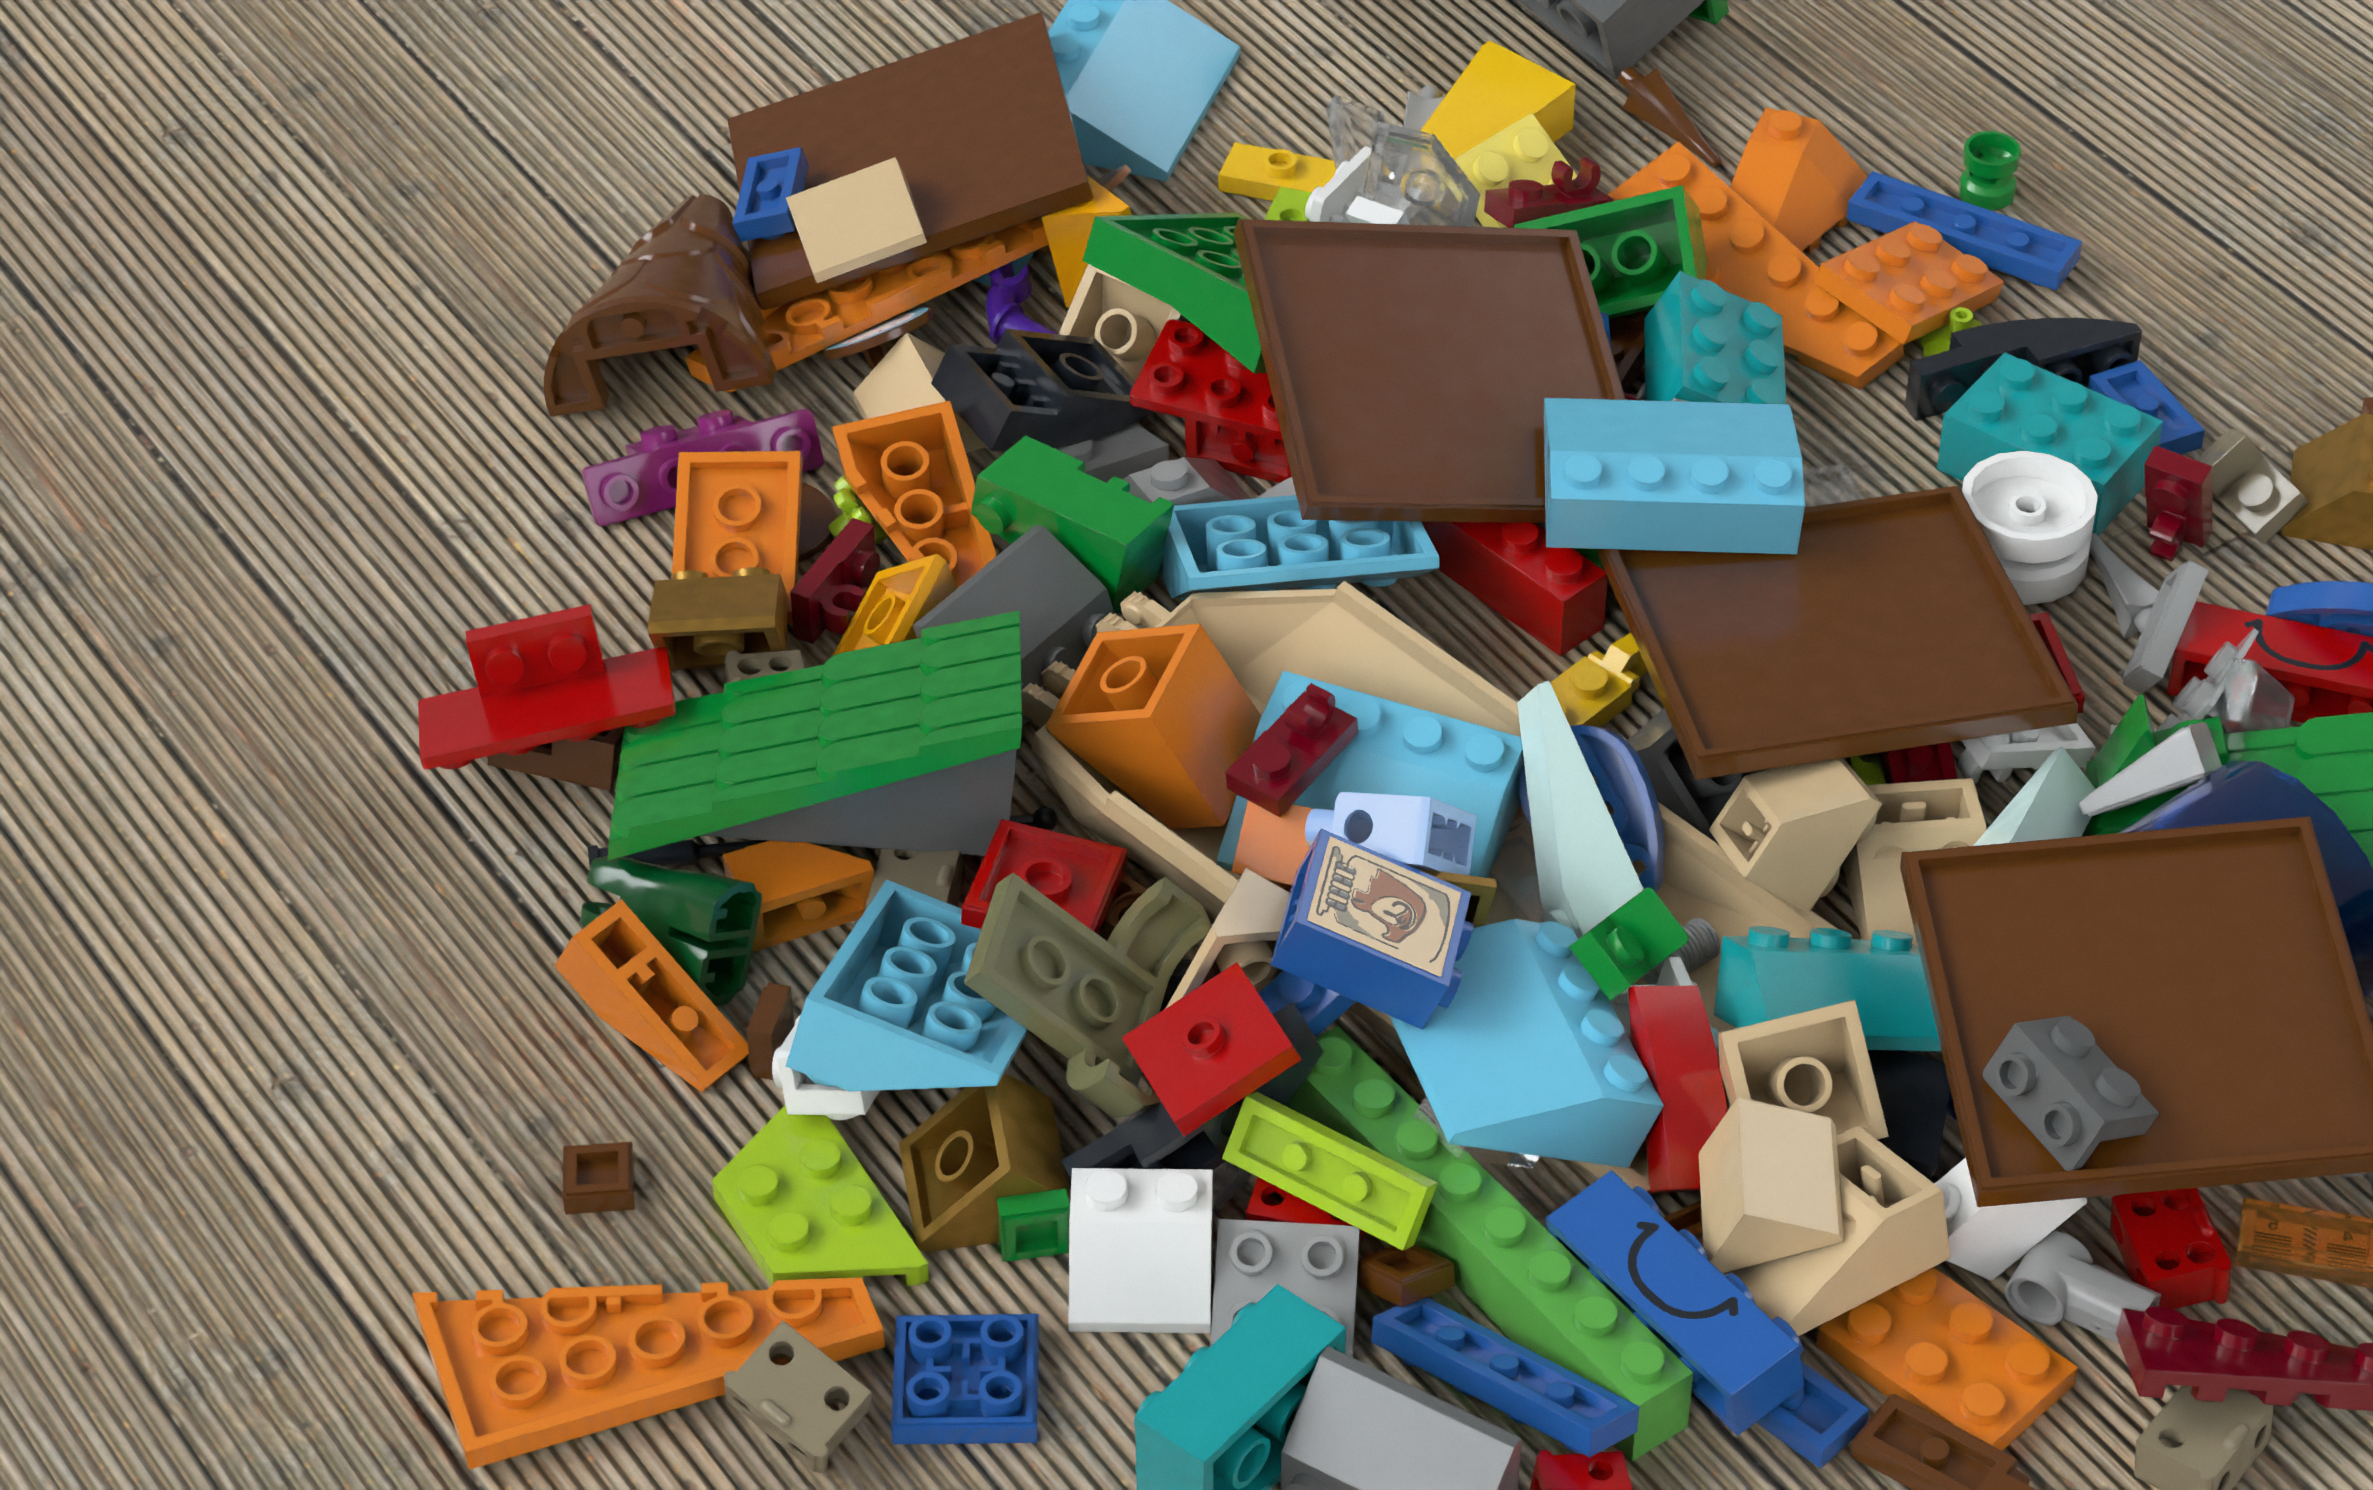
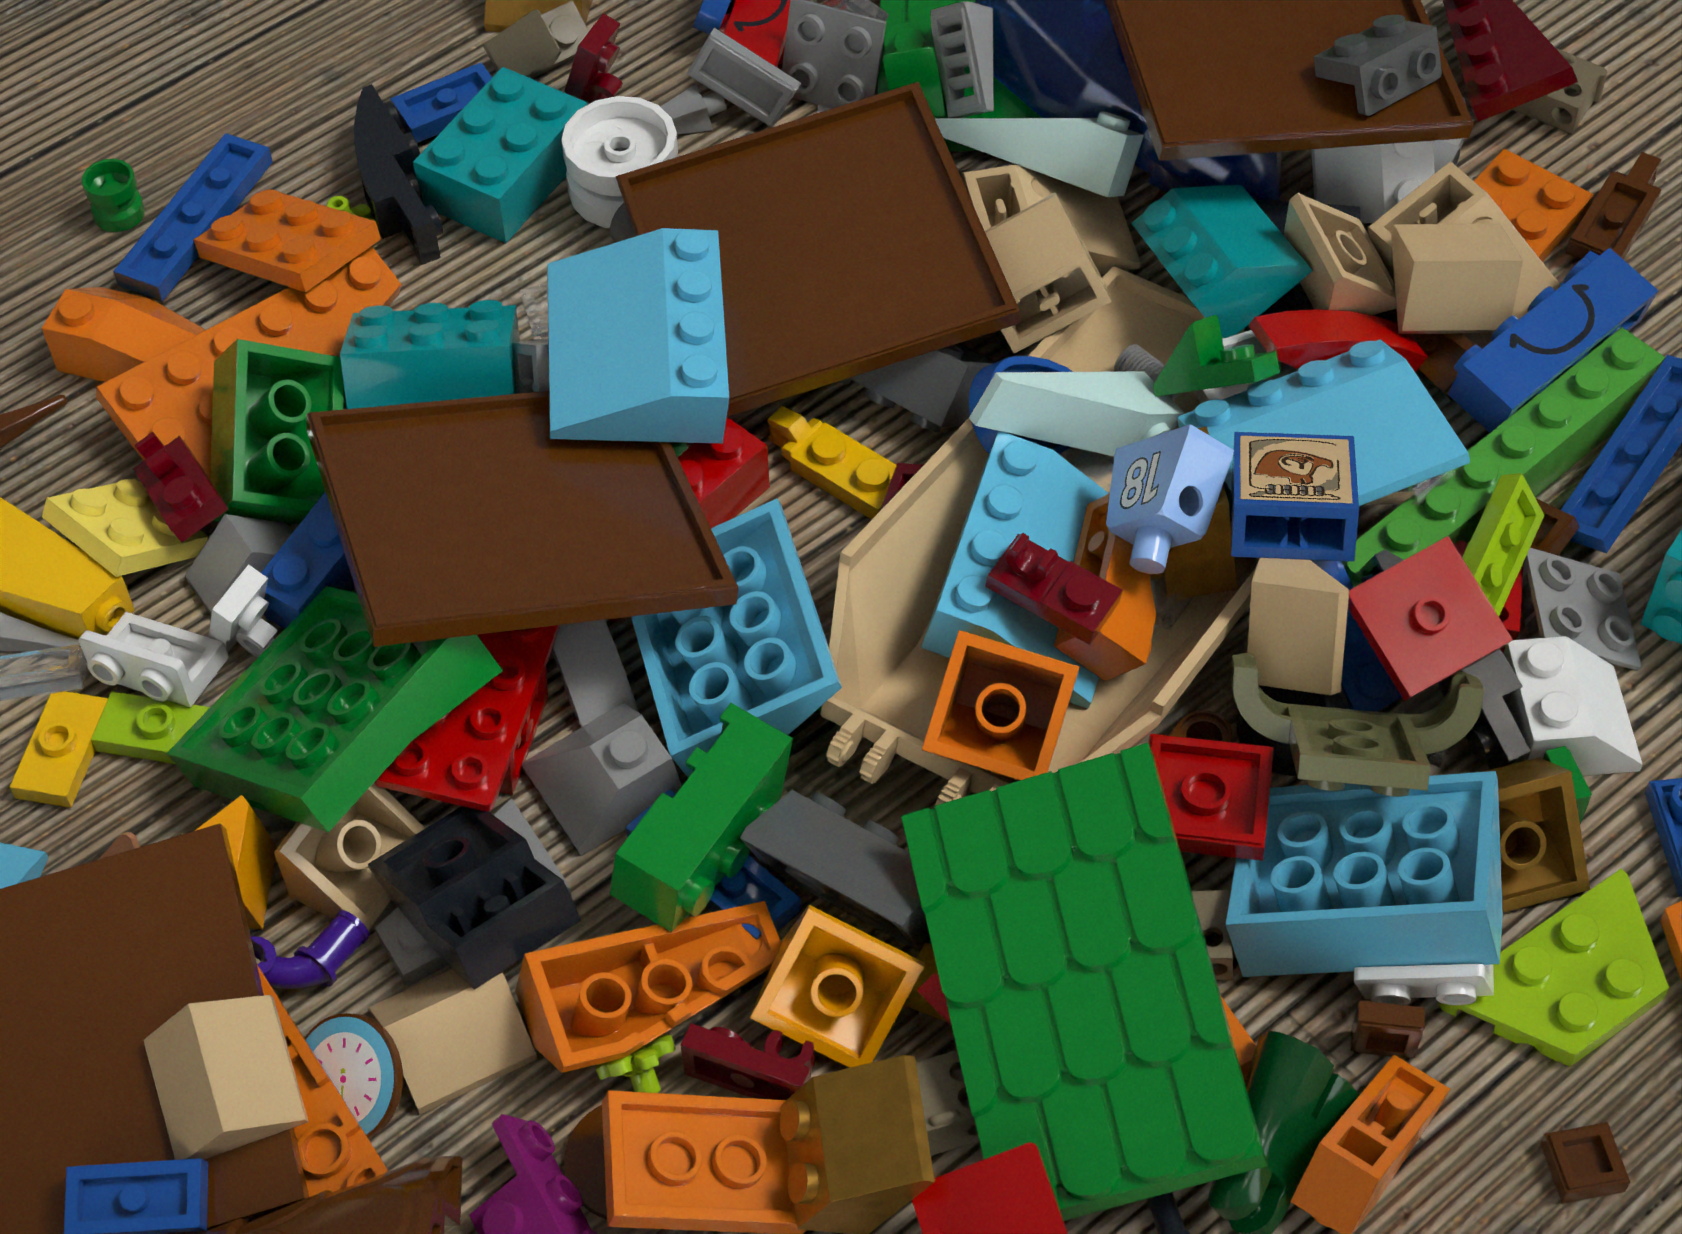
camera: 95 degrees left, 10 degrees up
(1419, 177) = (150, 591): clear slope -> none

